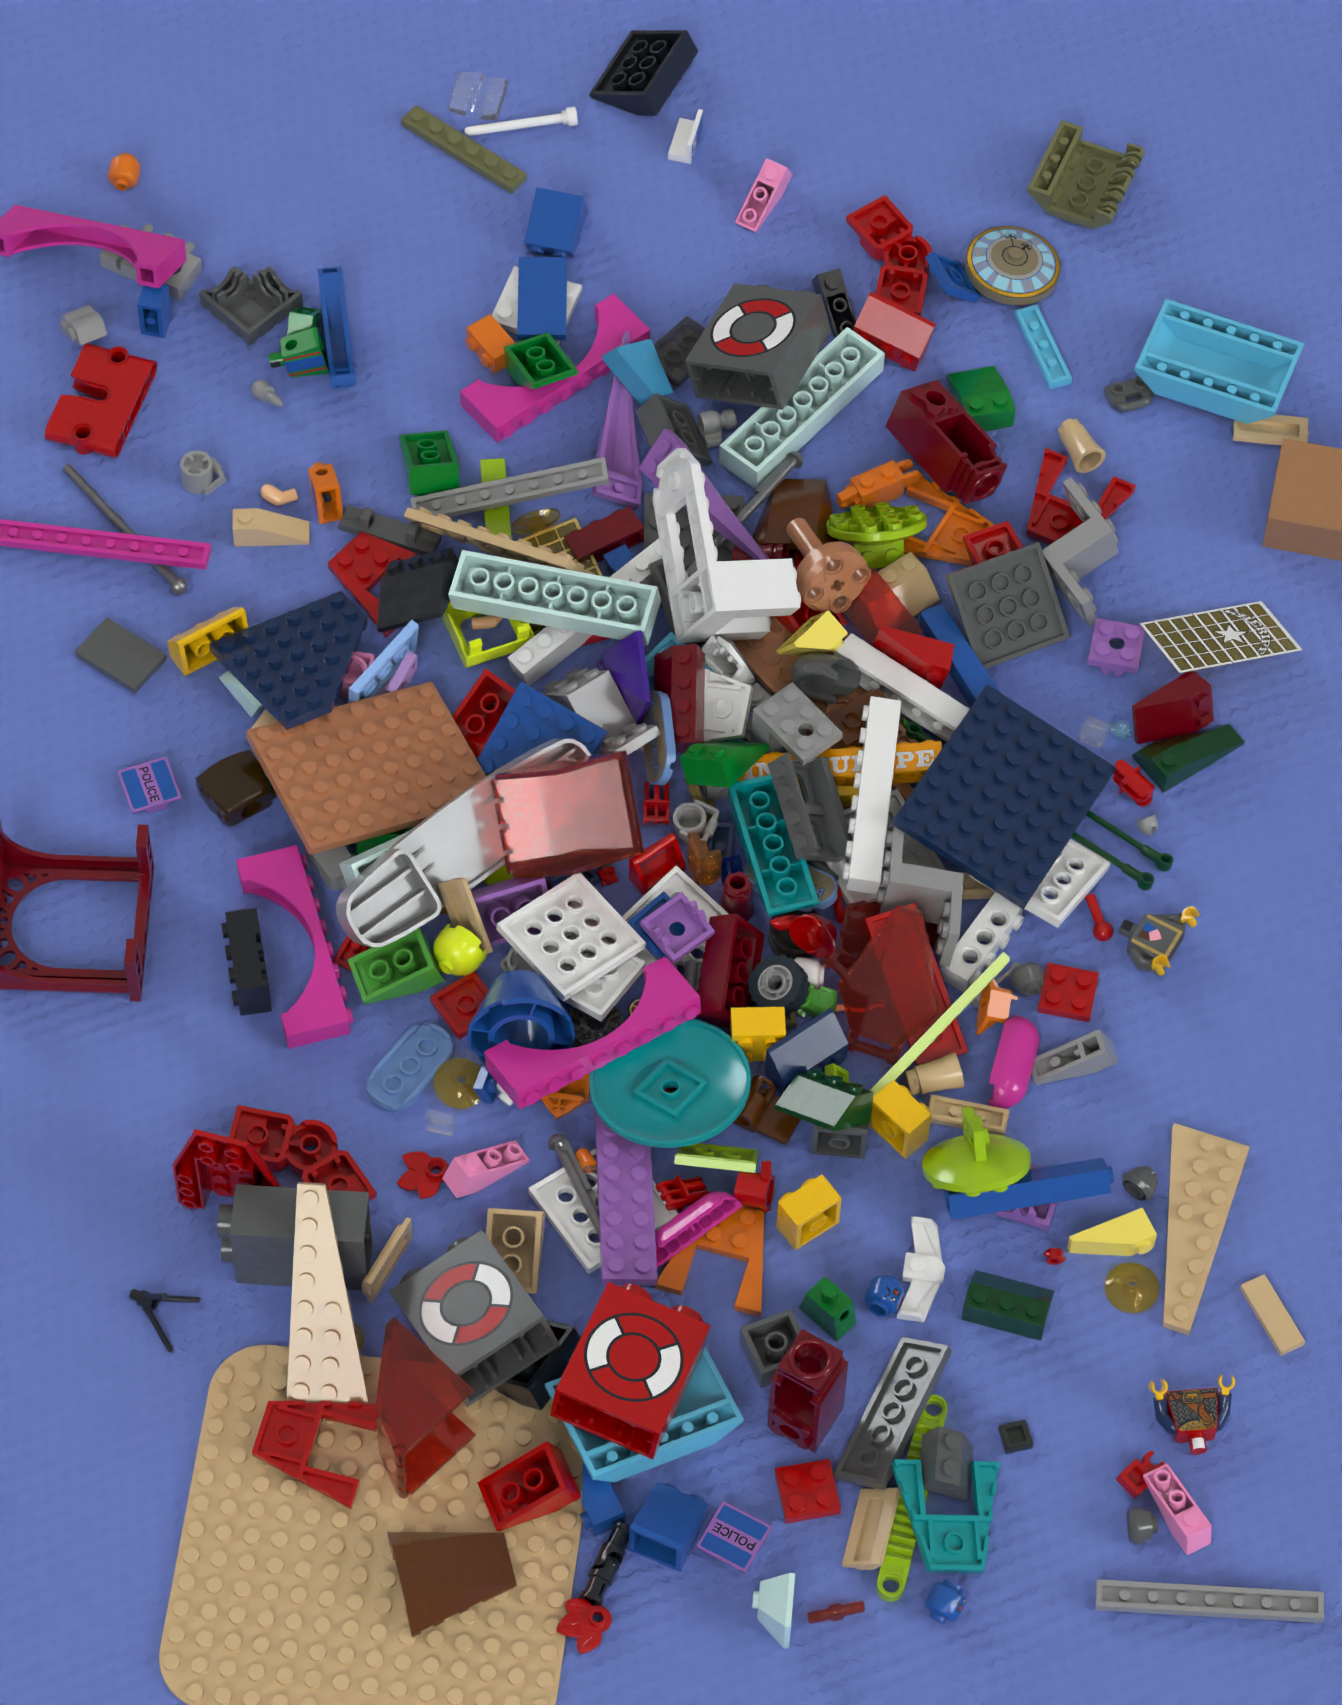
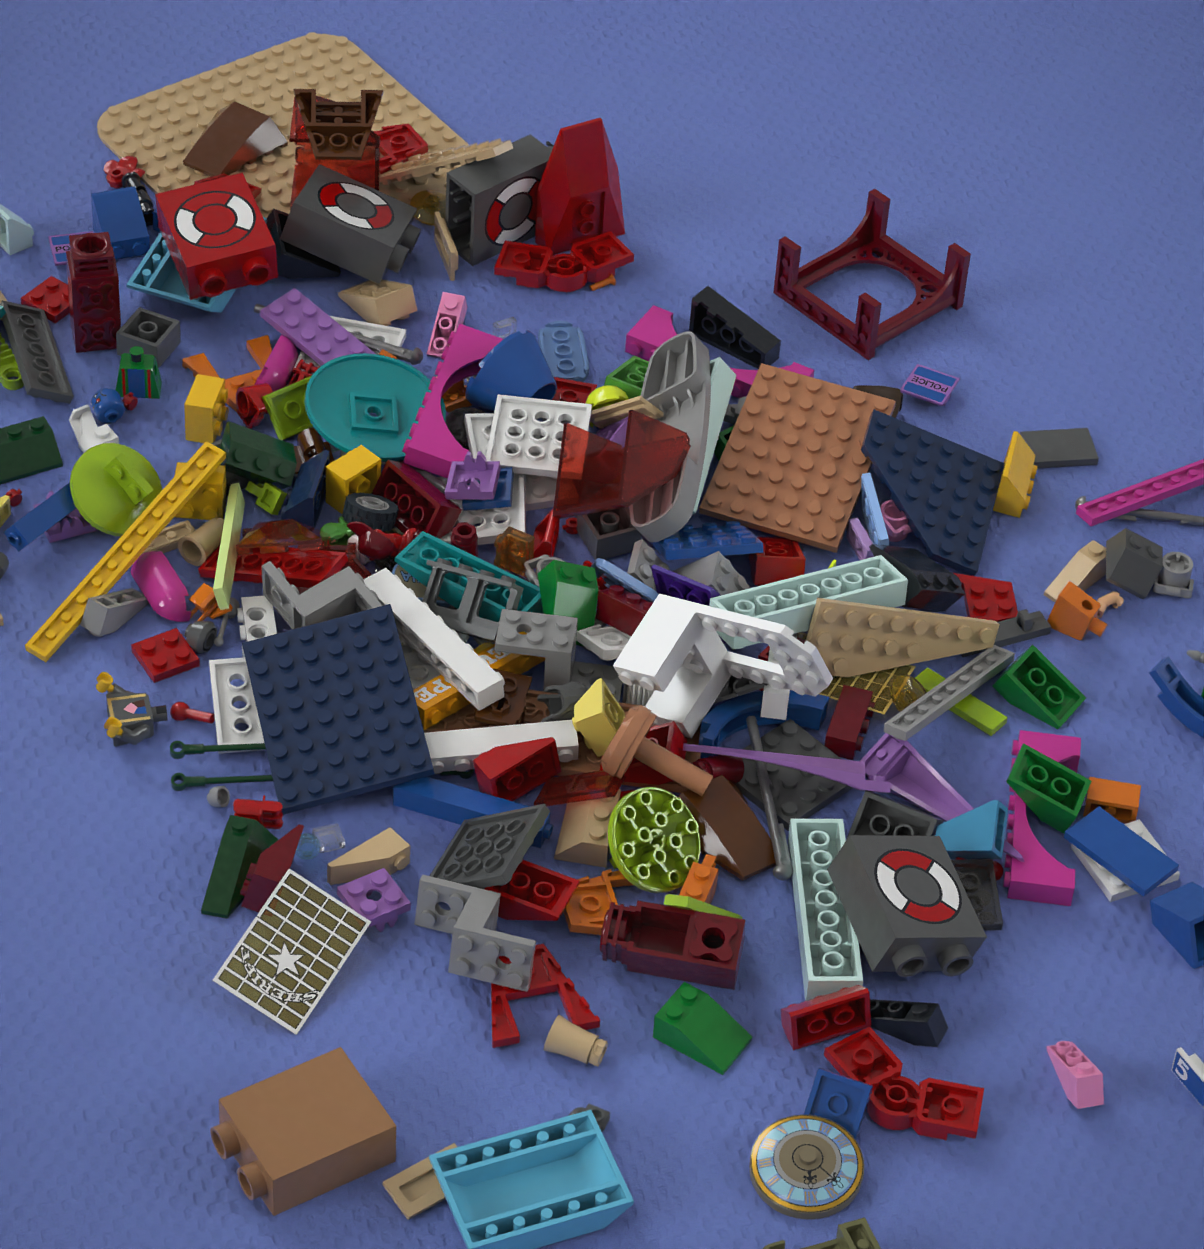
camera: 135 degrees right, 15 degrees down
(226, 491) = (1133, 562): none -> dark grey slope
(418, 1352) = (338, 128): none -> reddish brown wedge
(419, 1174) = (484, 307): red plate -> none
(856, 1295) = (130, 401): none -> red piece
(907, 441) = (693, 904): none -> lime tile
(1025, 1082) = (126, 550): none -> yellow plate
(1043, 347) = (702, 1118): medium azure tile -> none
(1081, 683) = (381, 851): none -> tan slope

